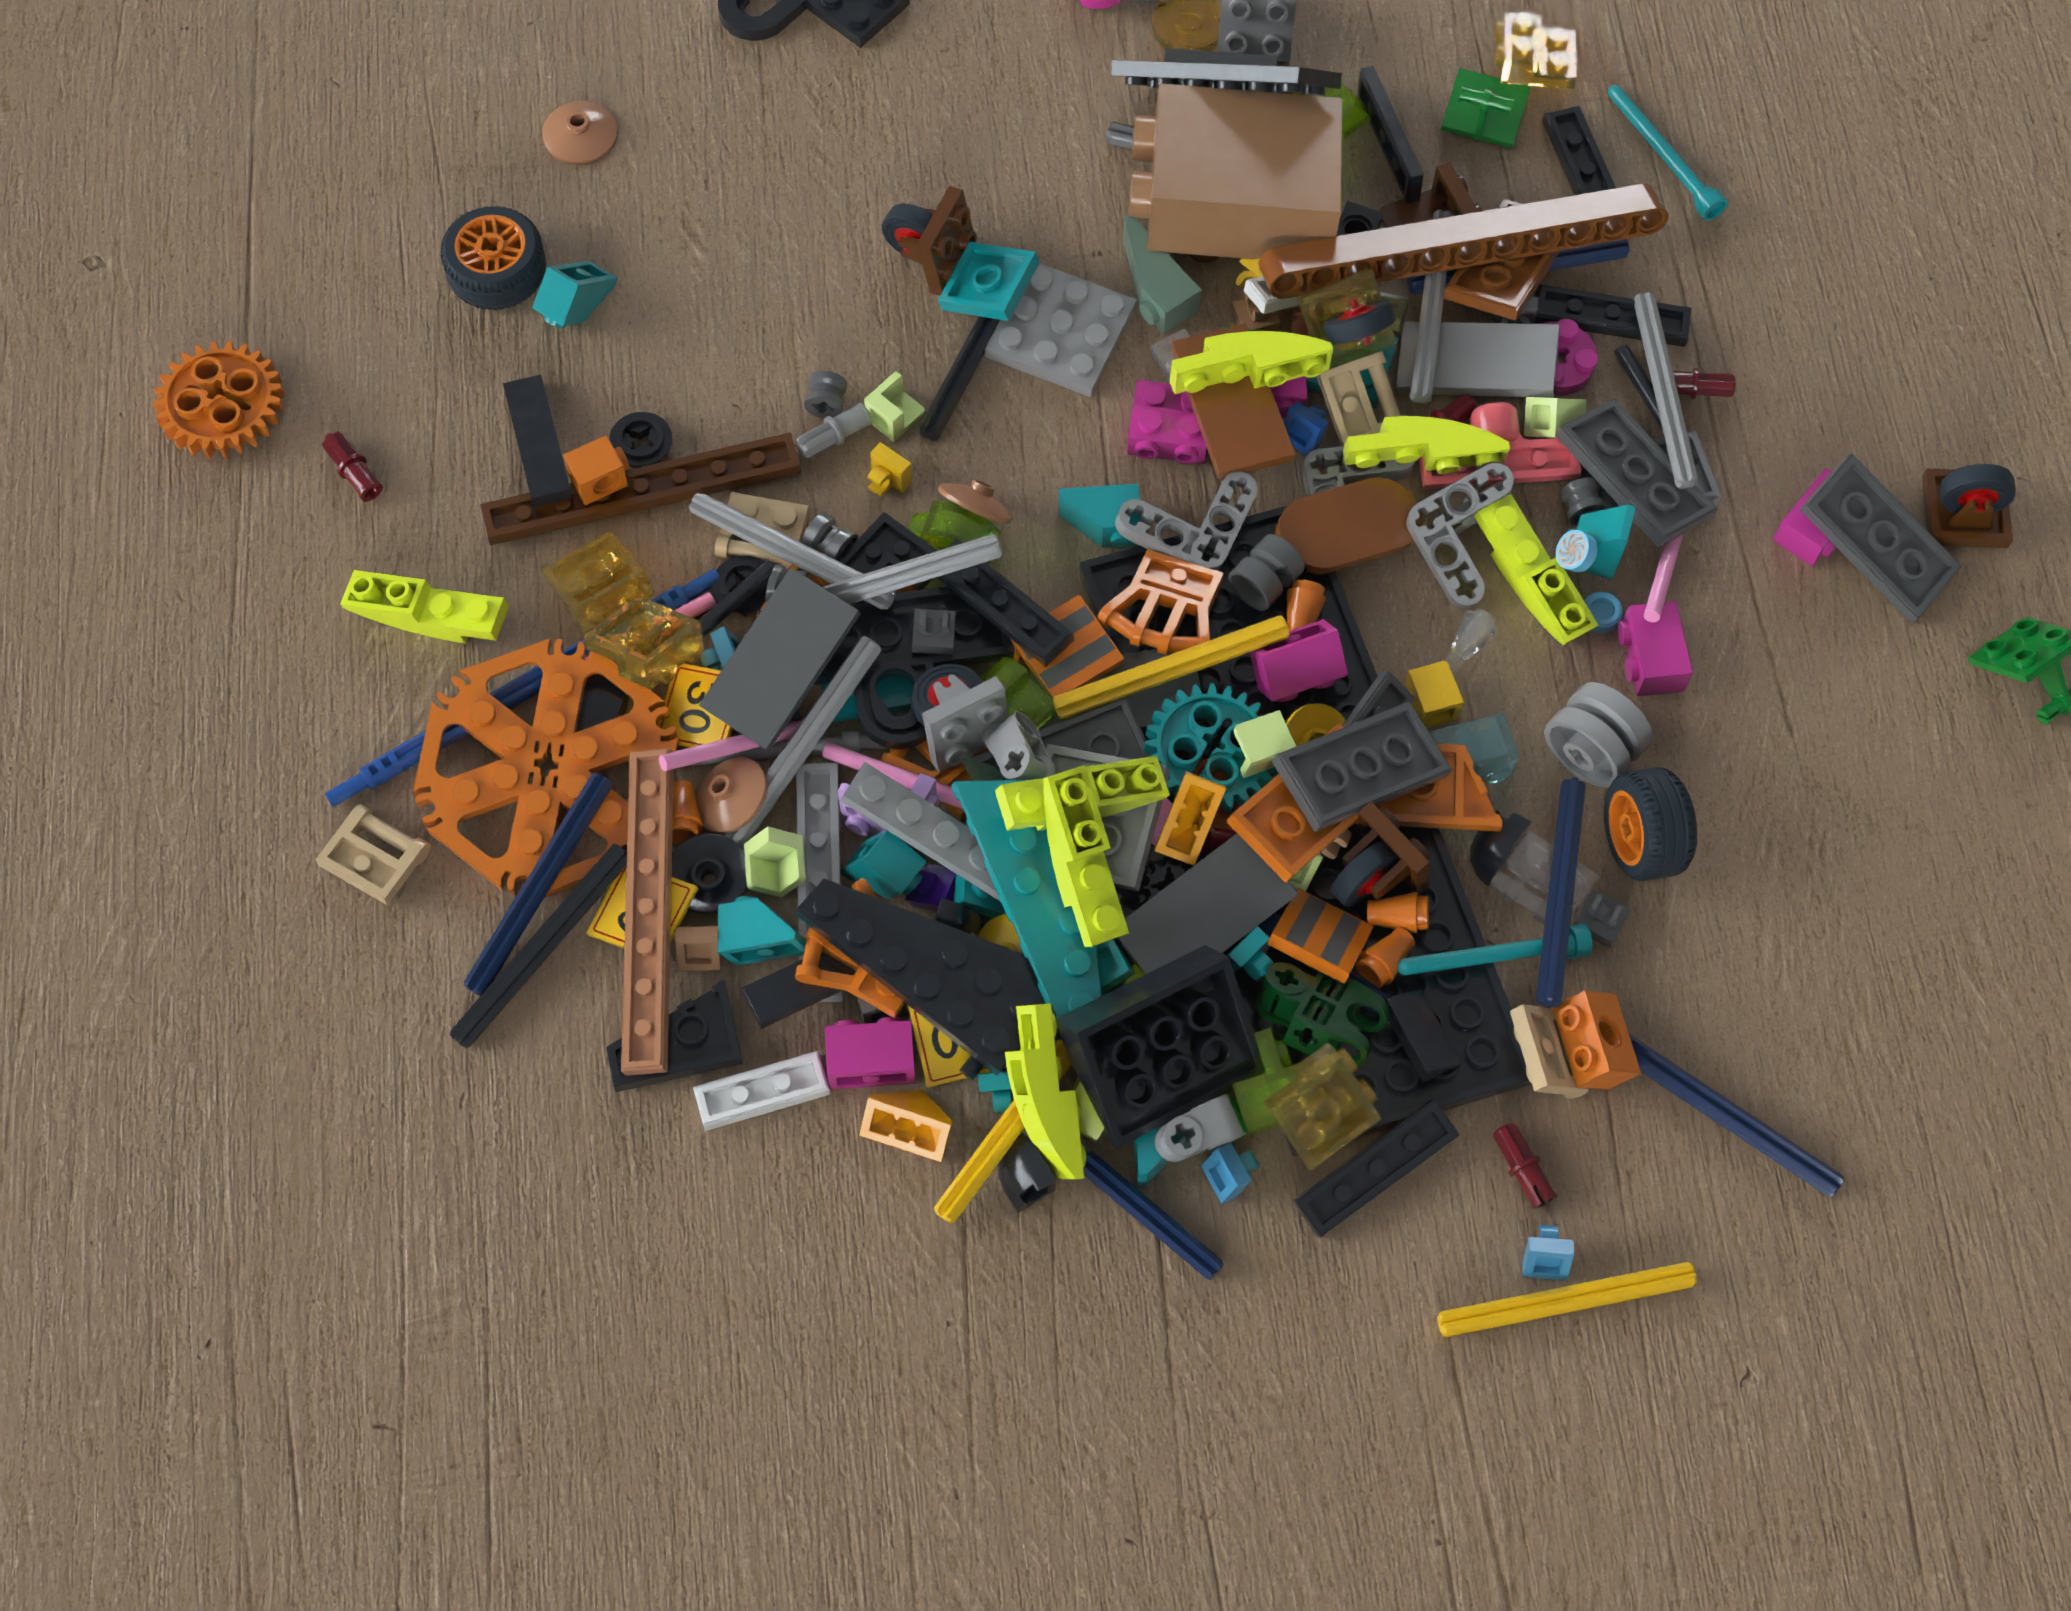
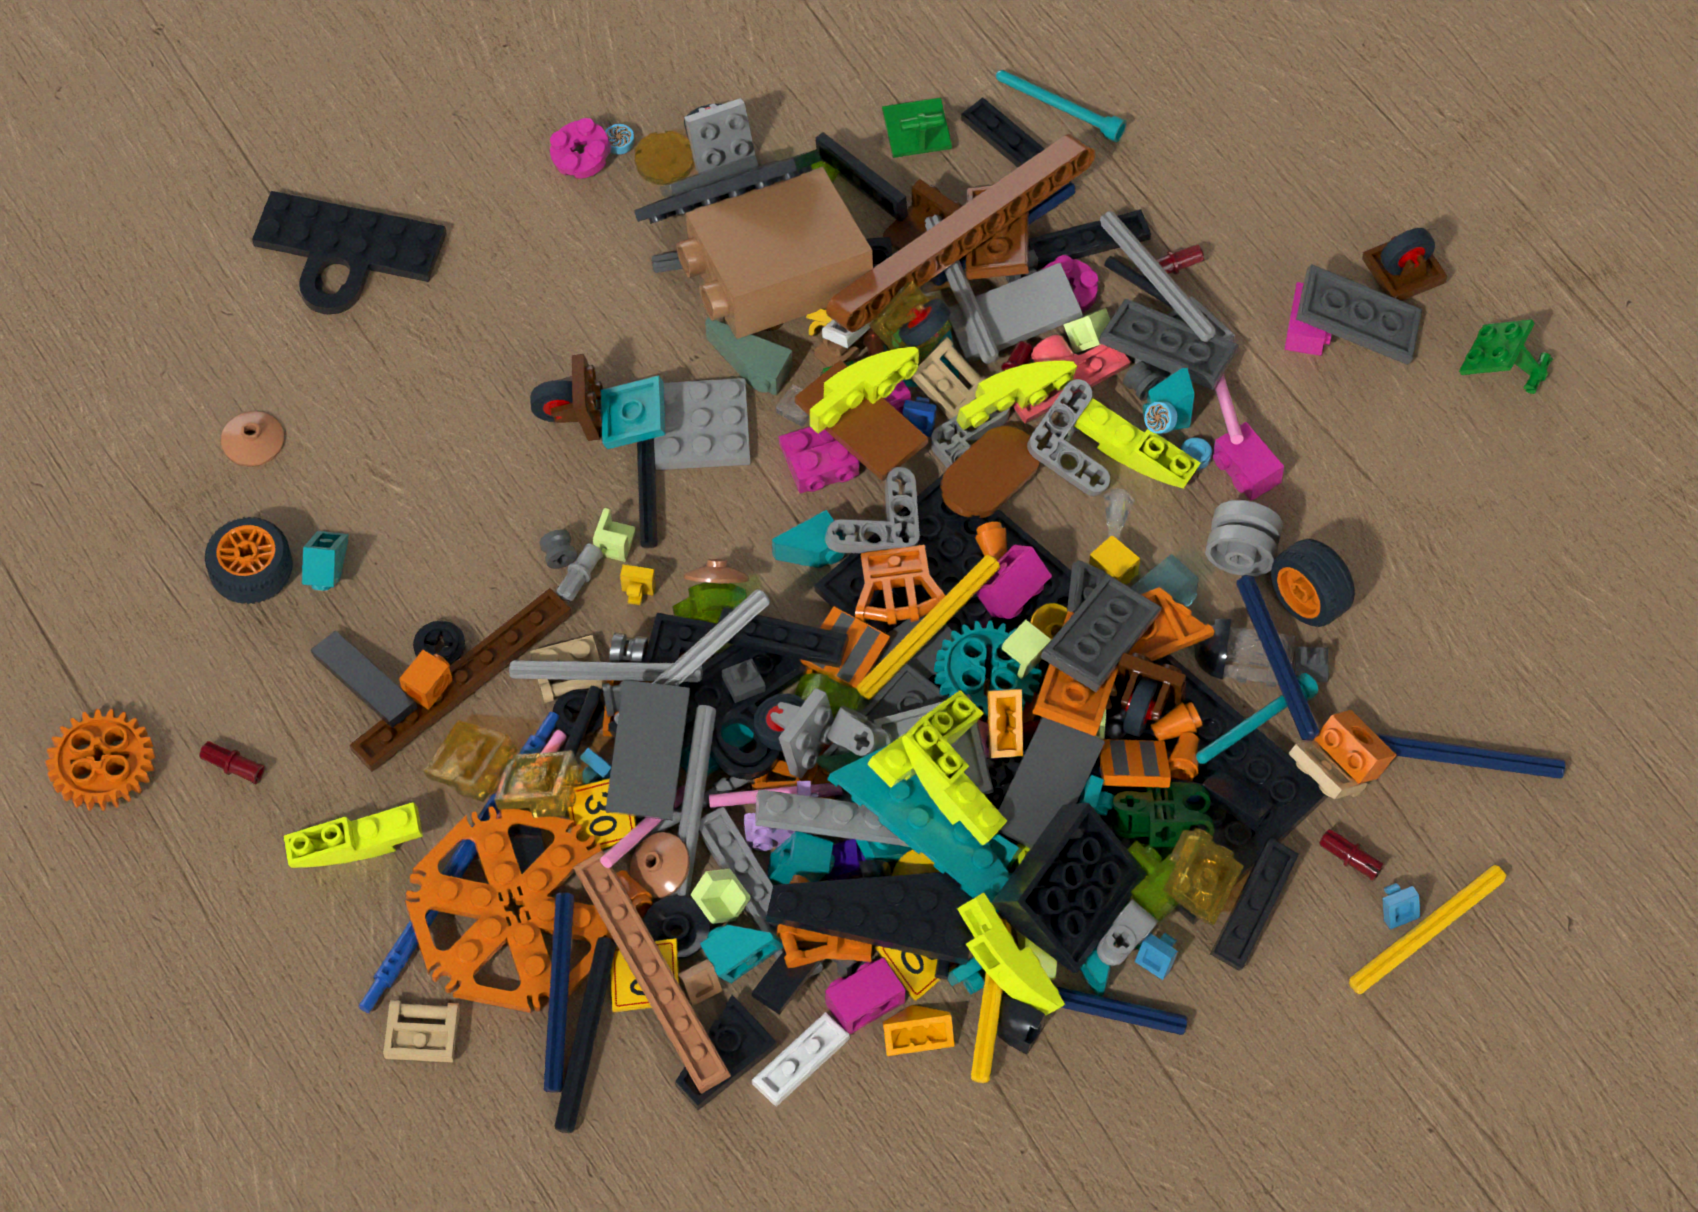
camera: 25 degrees left, 5 degrees down
(1266, 572) = (954, 530): dark grey wheel -> none
(1534, 53) = (930, 72): clear yellow plate -> none

